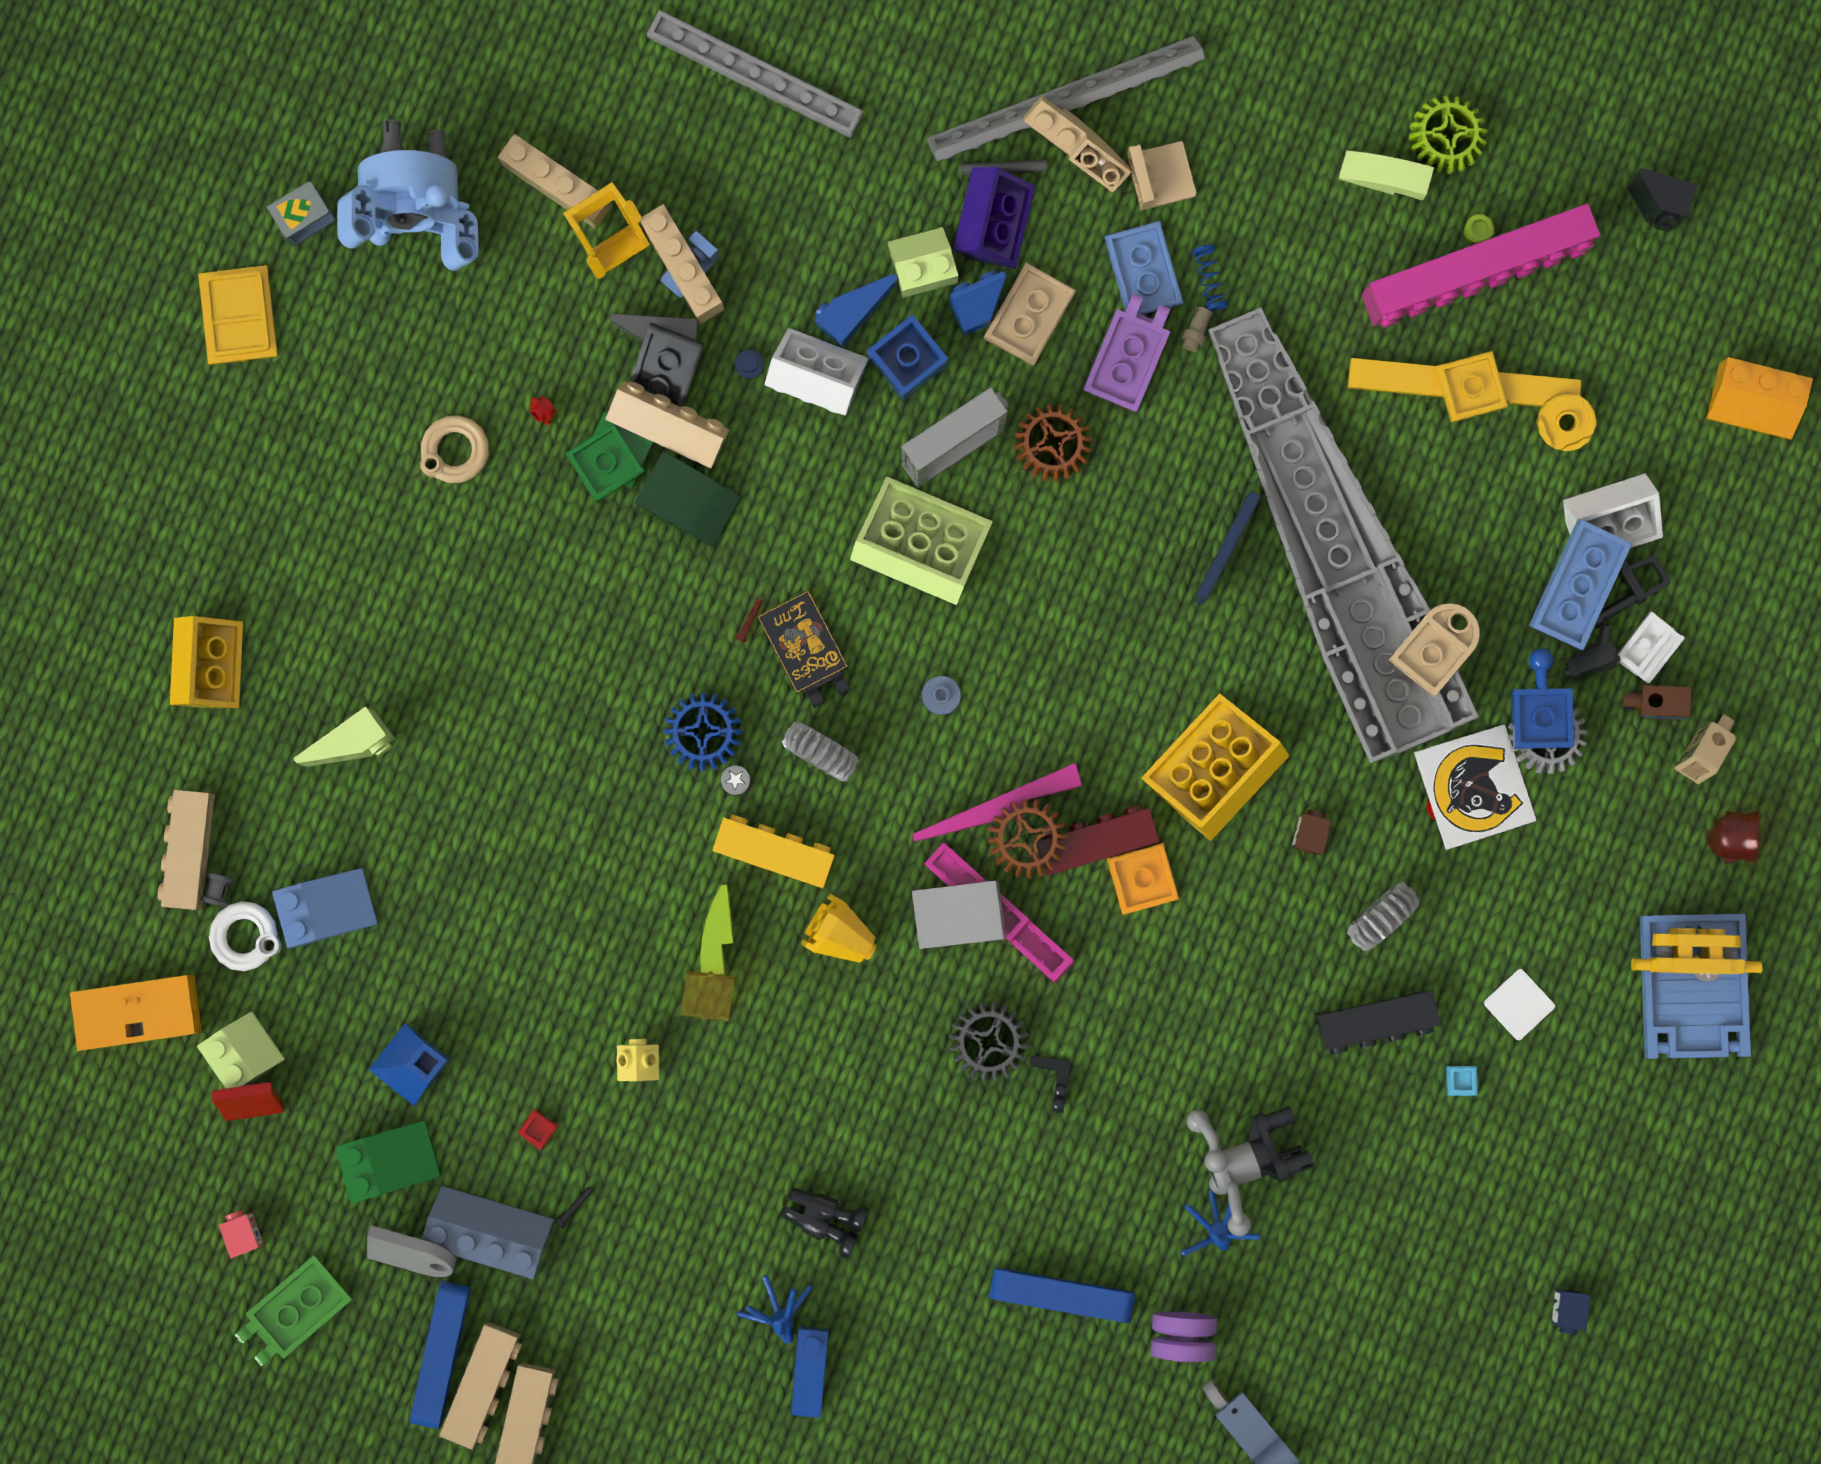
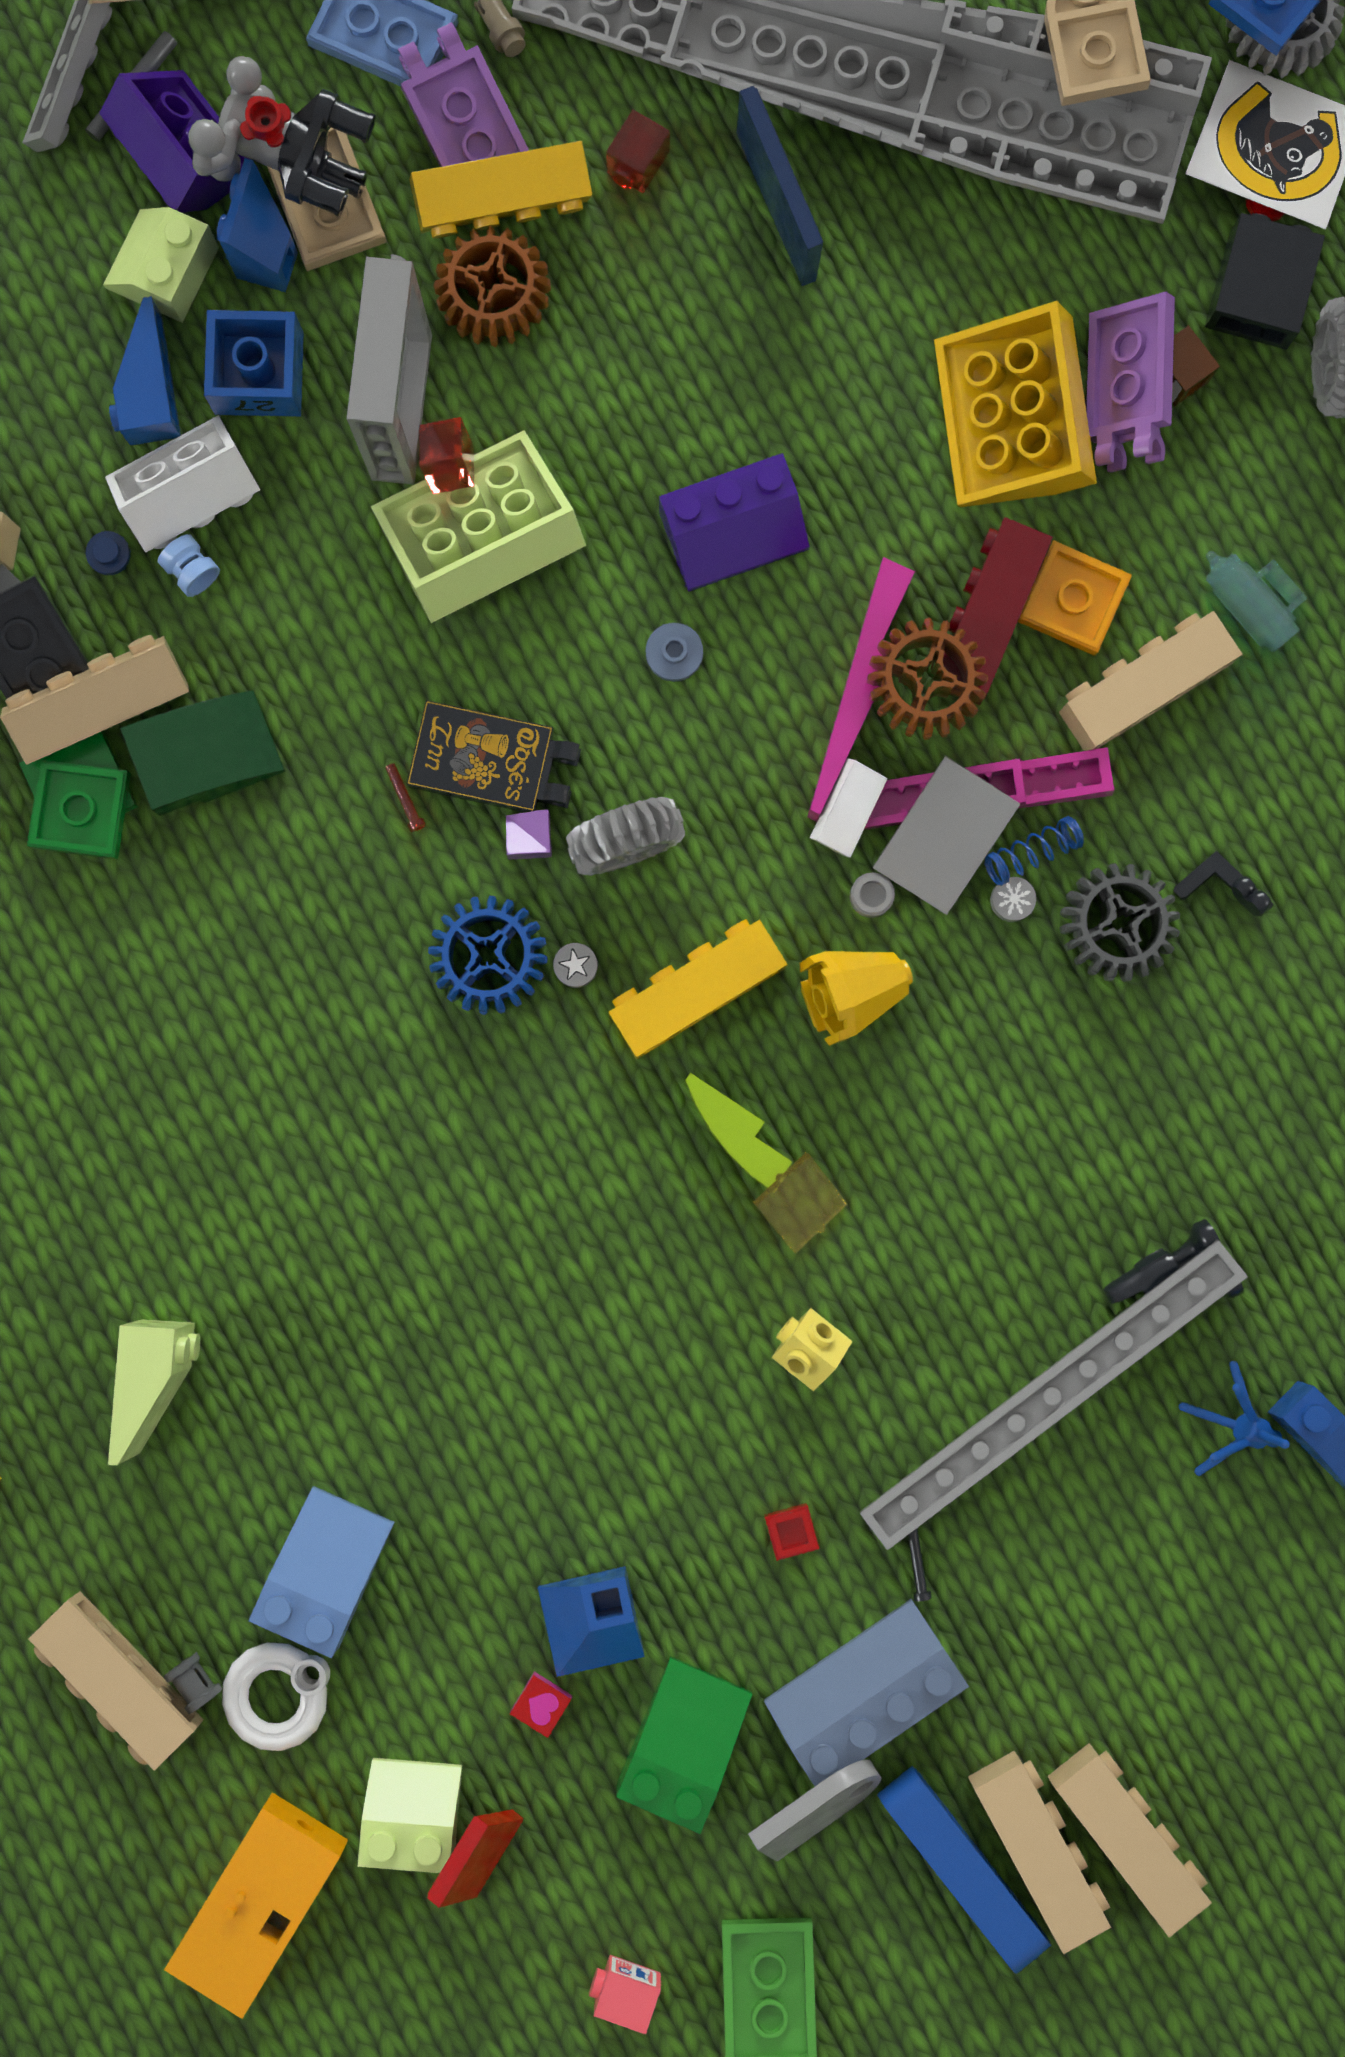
camera: 55 degrees left, 0 degrees up
(348, 1073) = (541, 1704): none -> red tile
(715, 1203) = (1053, 1394): none -> light grey plate
(776, 411) = (189, 566): none -> light blue wheel
(782, 700) = (528, 835): none -> medium lavender slope
(898, 902) = (872, 895): none -> light grey tile
(931, 852) = (848, 807): none -> white tile
(942, 495) = (446, 455): none -> clear red brick
(956, 976) = (1013, 900): none -> light grey tile
(964, 952) = (1065, 836): none -> blue piece
(1017, 268) = (256, 111): none -> red plate
(1029, 283) = (302, 159): none -> wheel
(1032, 671) = (734, 522): none -> dark purple slope
(1106, 406) = (501, 188): none -> yellow brick
(1127, 954) = (1149, 682): none -> tan brick
(1186, 458) = (637, 152): none -> clear red brick
(1216, 974) = (1253, 601): none -> clear light blue piece
(1277, 814) = (1130, 379): none -> medium lavender tile
(1394, 840) = (1264, 280): none -> black brick

